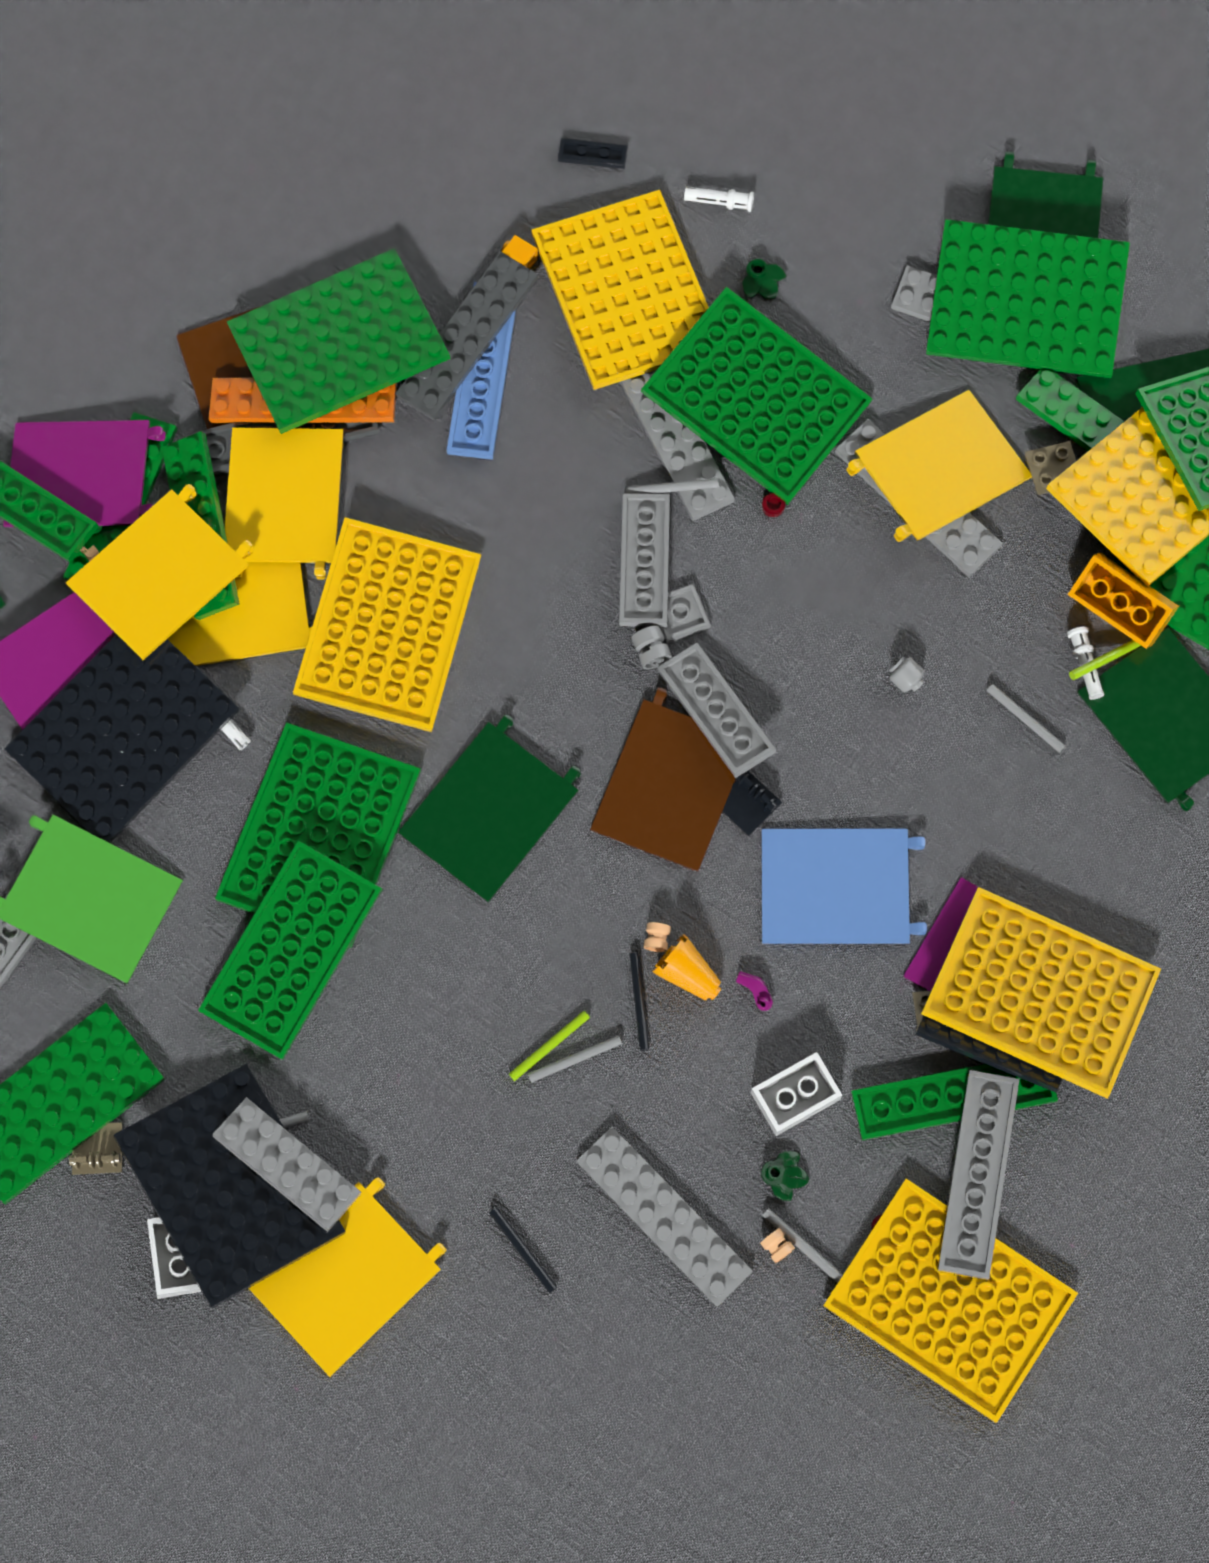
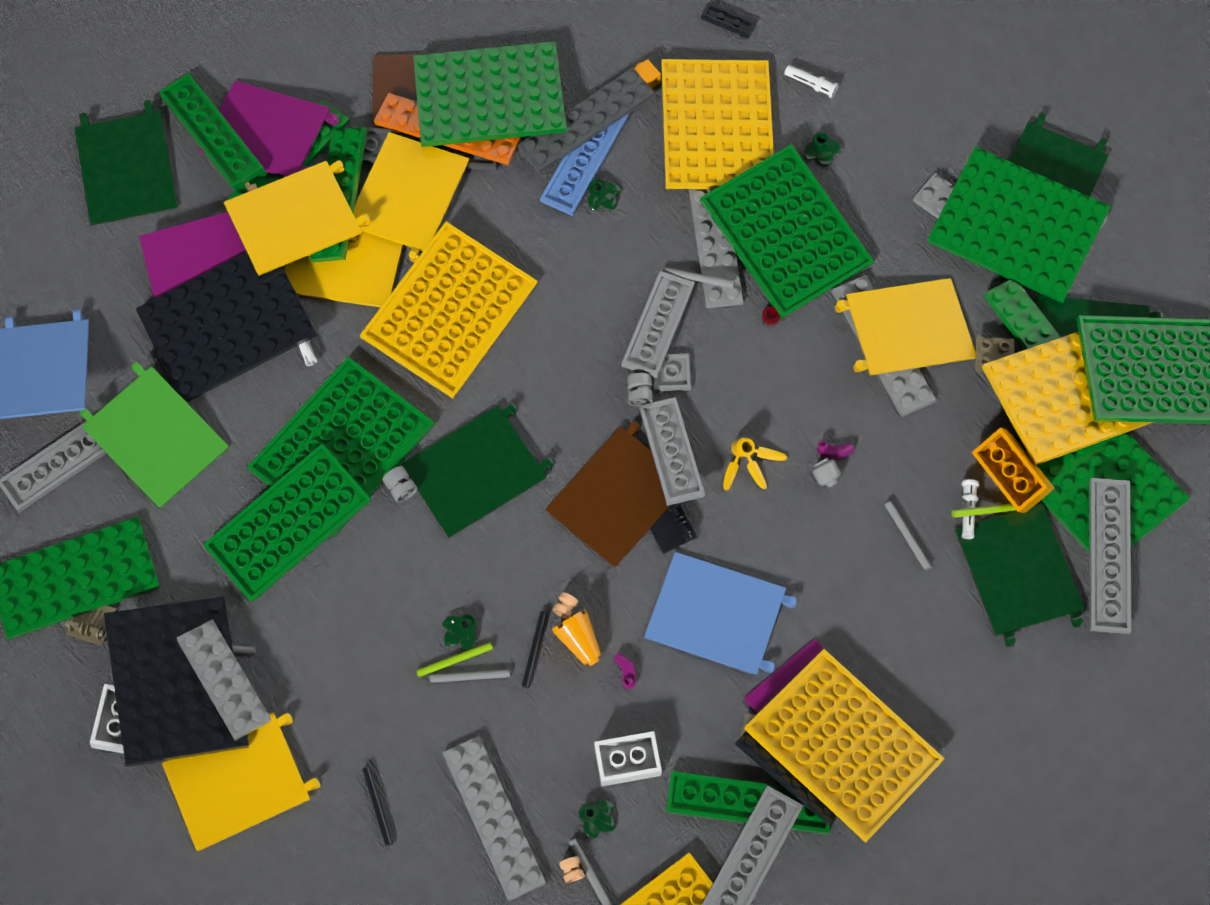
camera: 15 degrees right, 5 degrees down
(409, 859) = (398, 482): none -> light grey wheel
(522, 423) = (604, 196): none -> dark green plate
(542, 1013) = (457, 633): none -> dark green plate
(801, 677) = (748, 449): none -> yellow plant
(906, 646) = (834, 452): none -> magenta arm

